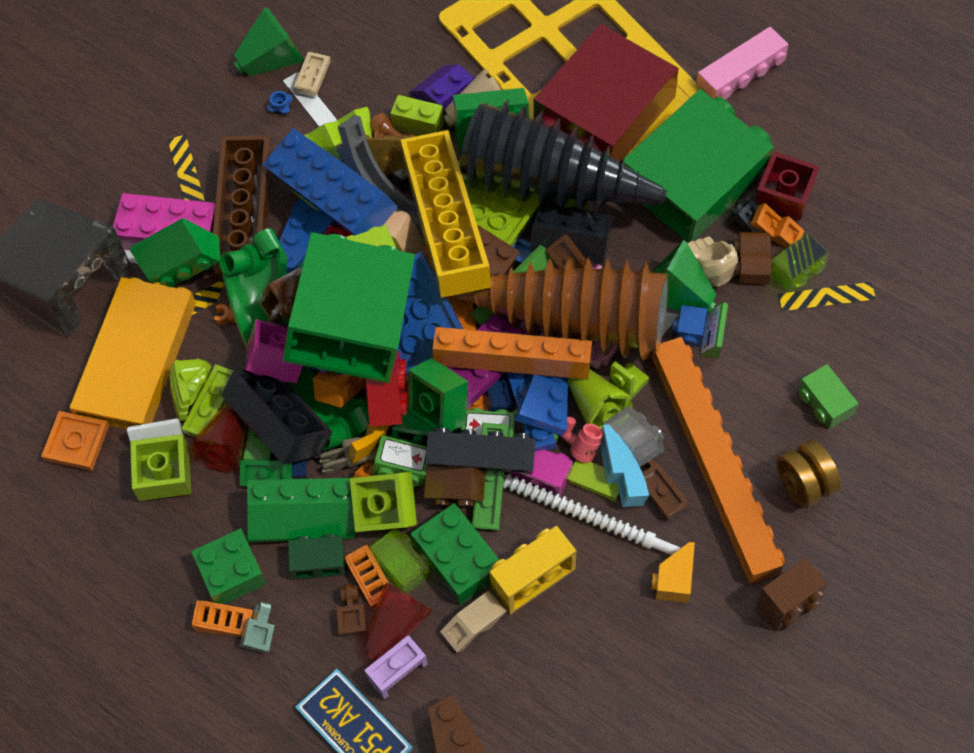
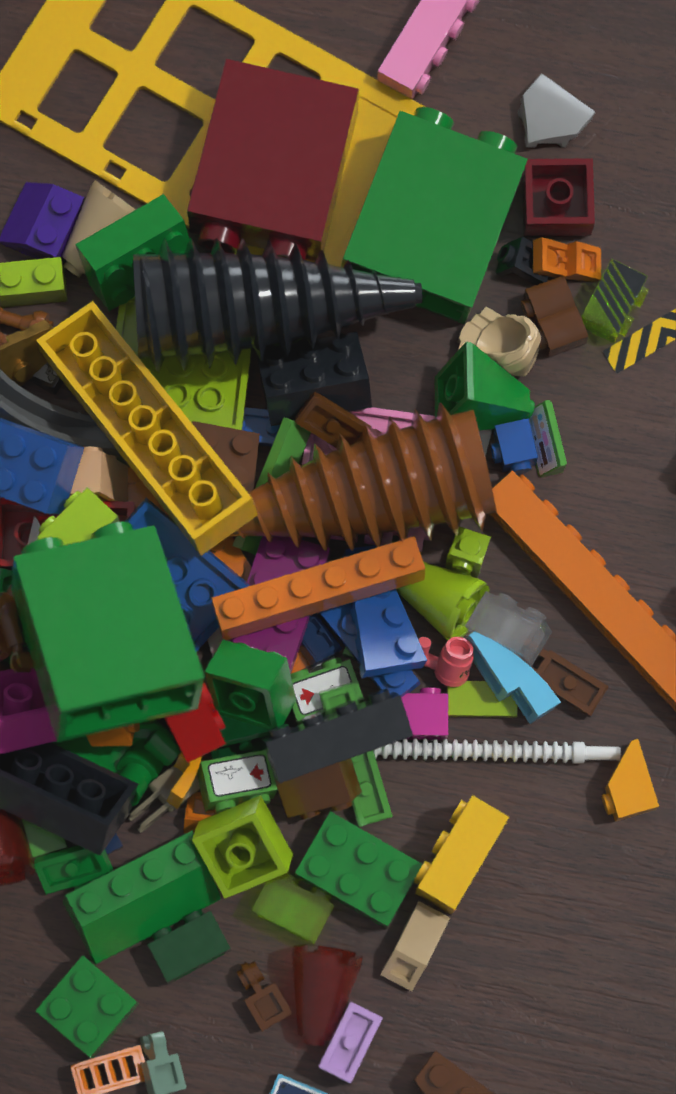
camera: 30 degrees left, 15 degrees up
(358, 556) = (237, 926): orange slope -> none
(805, 140) = (552, 114): none -> light grey slope

